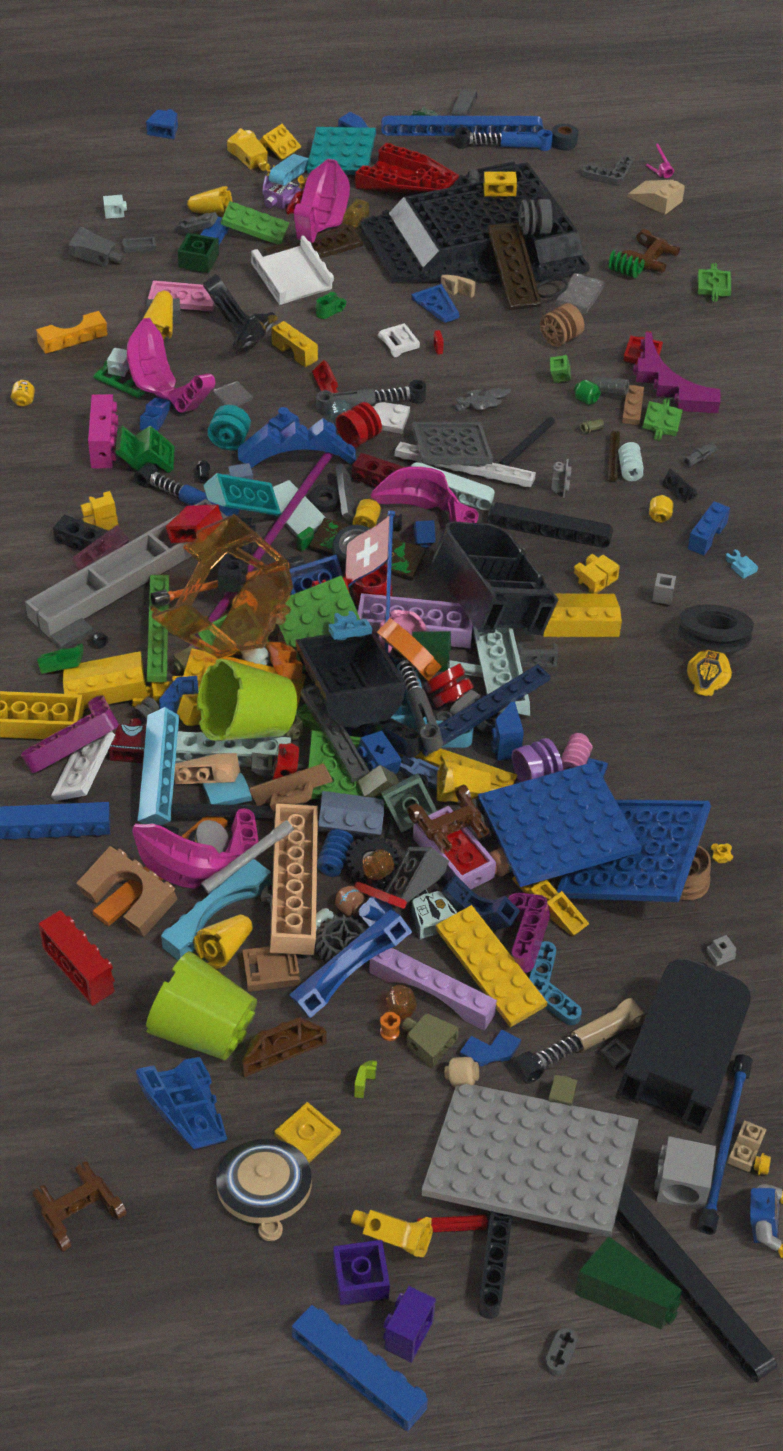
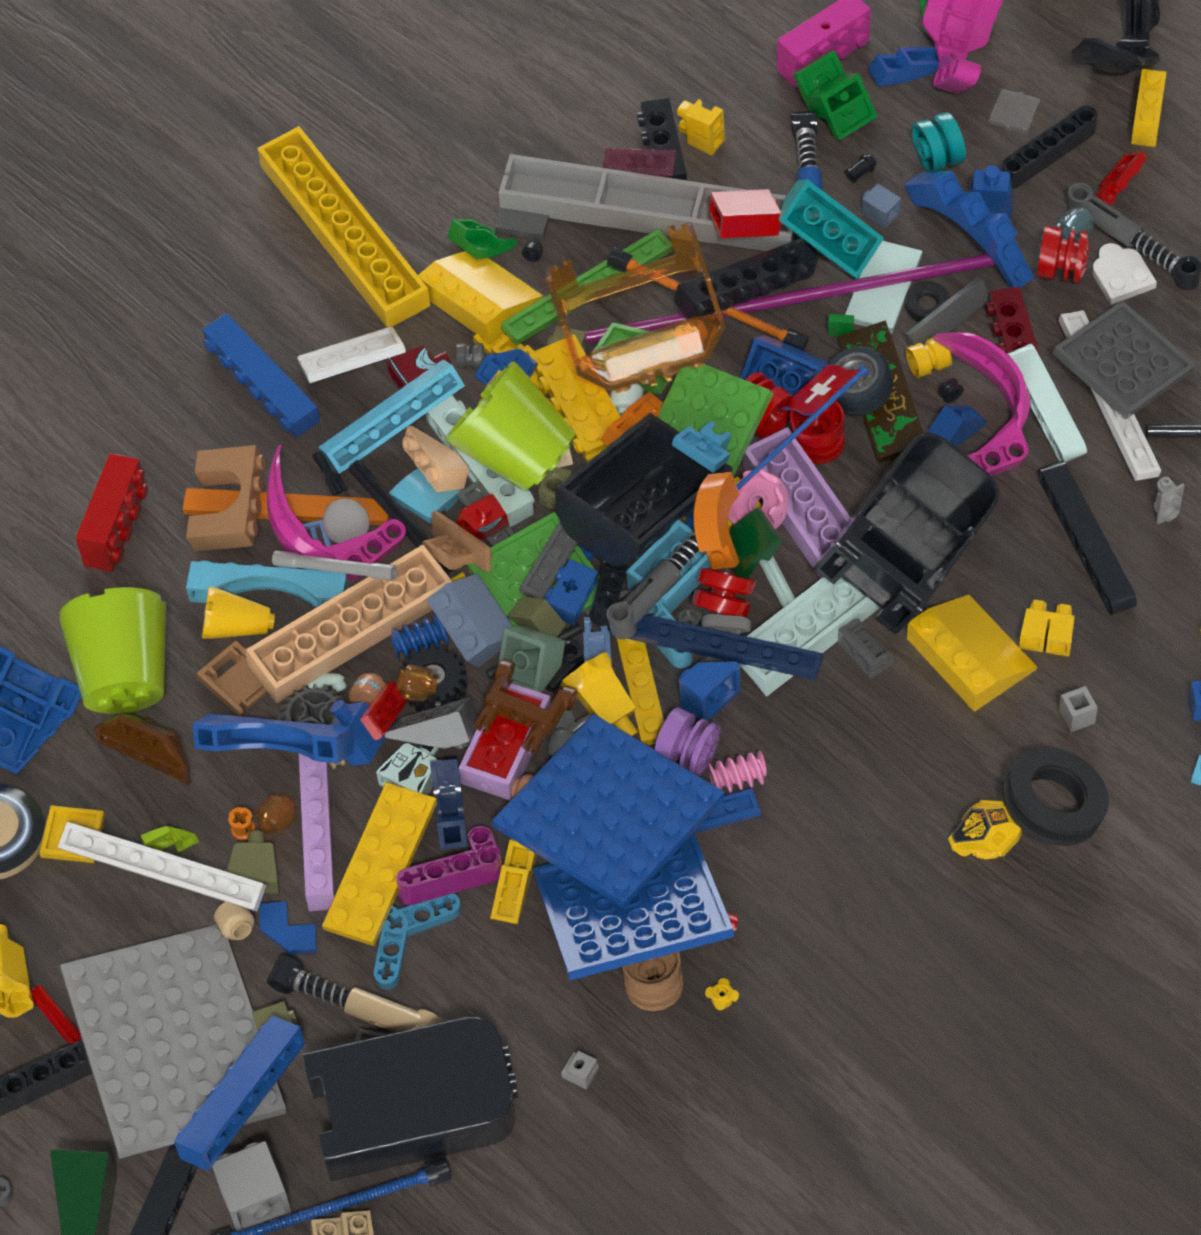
camera: 60 degrees right, 10 degrees up
(72, 737) = (379, 322): magenta beam -> none
(275, 387) = (1051, 145): none -> black beam
(390, 1086) = (162, 866): none -> white plate
(620, 1131) = (239, 1093): none -> blue brick

